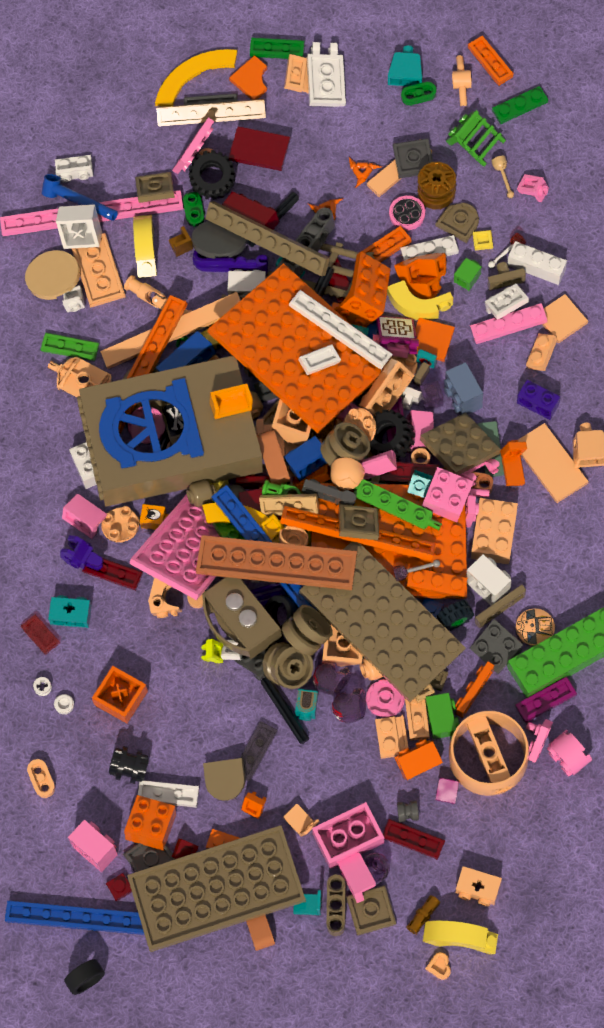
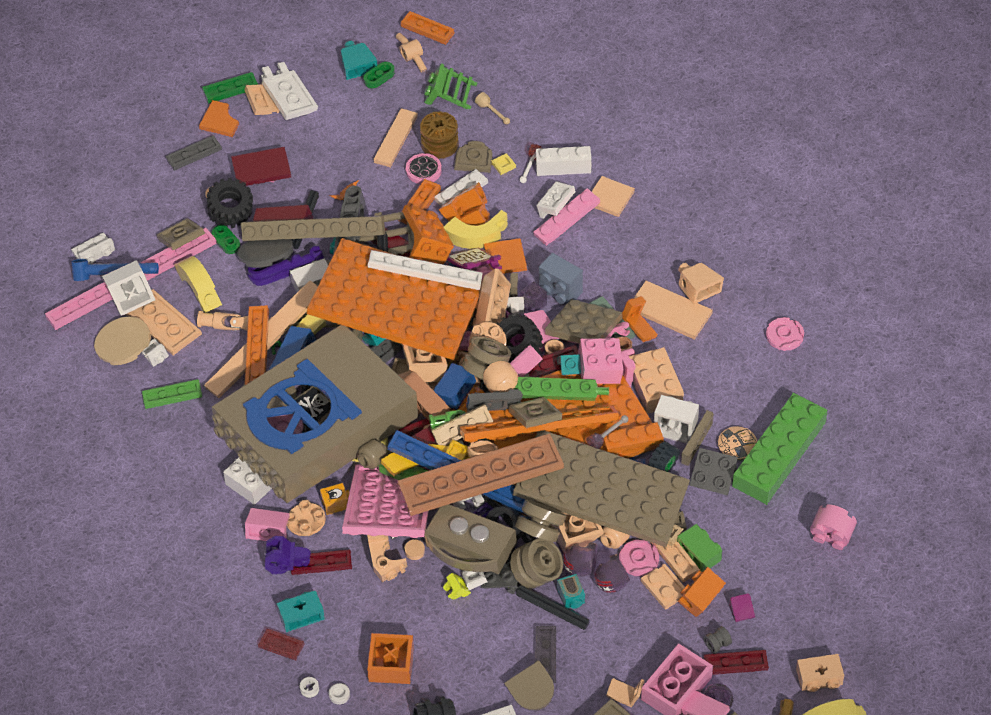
camera: 30 degrees left, 15 degrees down
(75, 368) = (186, 414): light nougat plate -> none
(181, 243) = (231, 269): pearl gold panel -> none
(190, 69) = (159, 132): yellow tile -> none
(194, 146) = (200, 182): bright pink plate -> none
(216, 111) = (198, 158): tile -> none
(231, 401) = (363, 357): light orange panel -> none
(253, 805) = (572, 698): orange tile -> none
(319, 359) = (421, 298): white tile -> none
(362, 176) = (363, 156): orange piece -> none
(411, 157) = (403, 123): dark grey tile -> none
(429, 358) = (507, 269): teal tile -> none
(467, 273) = (507, 193): bright green brick -> none
(474, 689) = (715, 513): orange plate -> none
(484, 740) = (745, 539): light nougat cylinder -> none
(505, 277) = (542, 183): dark tan tile -> none
(520, 105) = (473, 51): green plate -> none
(533, 186) = (523, 105): bright pink bracket -> none
(538, 399) = (630, 263): dark purple brick -> none
(541, 352) = (609, 227): light nougat plate -> none
(542, 733) = (800, 522): bright pink plate -> none
(545, 699) = (783, 496): magenta plate -> none

